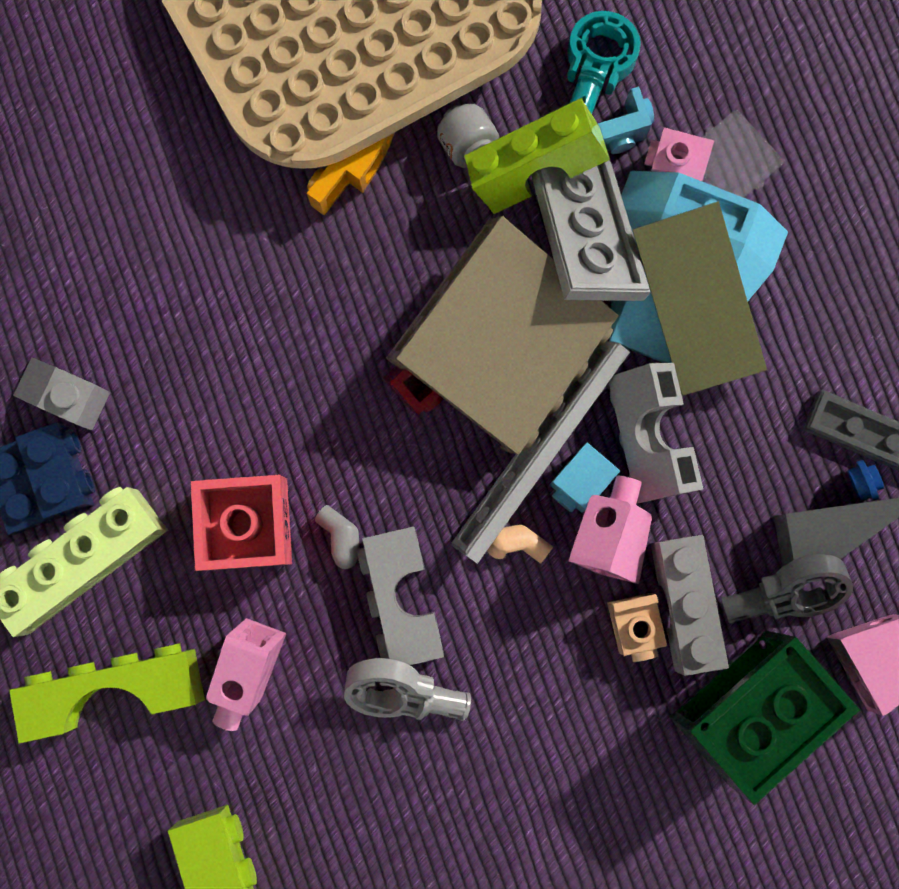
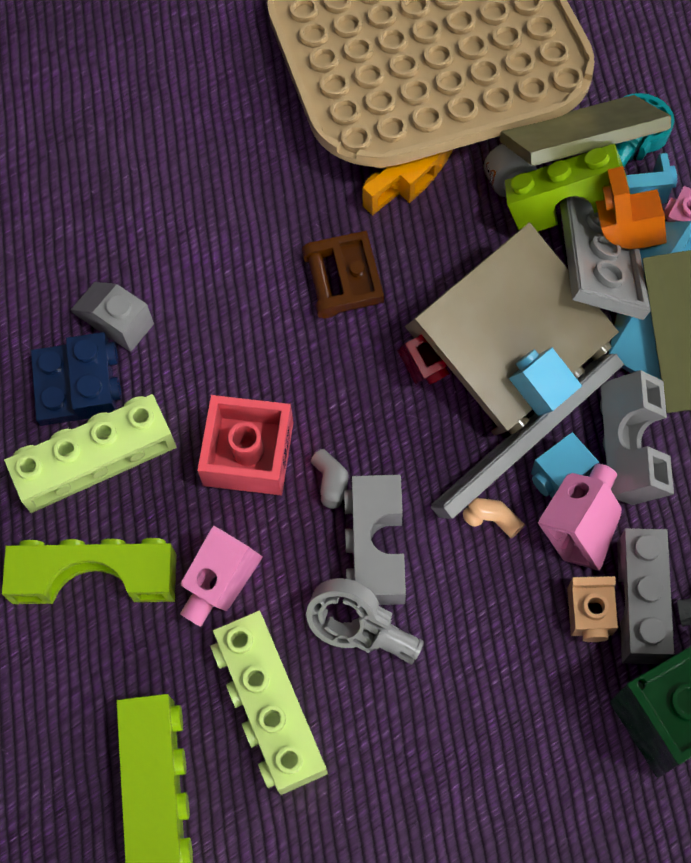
camera: 15 degrees right, 15 degrees down
(318, 290) = (355, 270): none -> reddish brown plate
(326, 795) = (269, 702): none -> yellowish green brick
(545, 81) = (586, 130): none -> olive tile
(549, 397) = (544, 380): none -> medium azure brick
(611, 181) = (629, 218): none -> orange brick

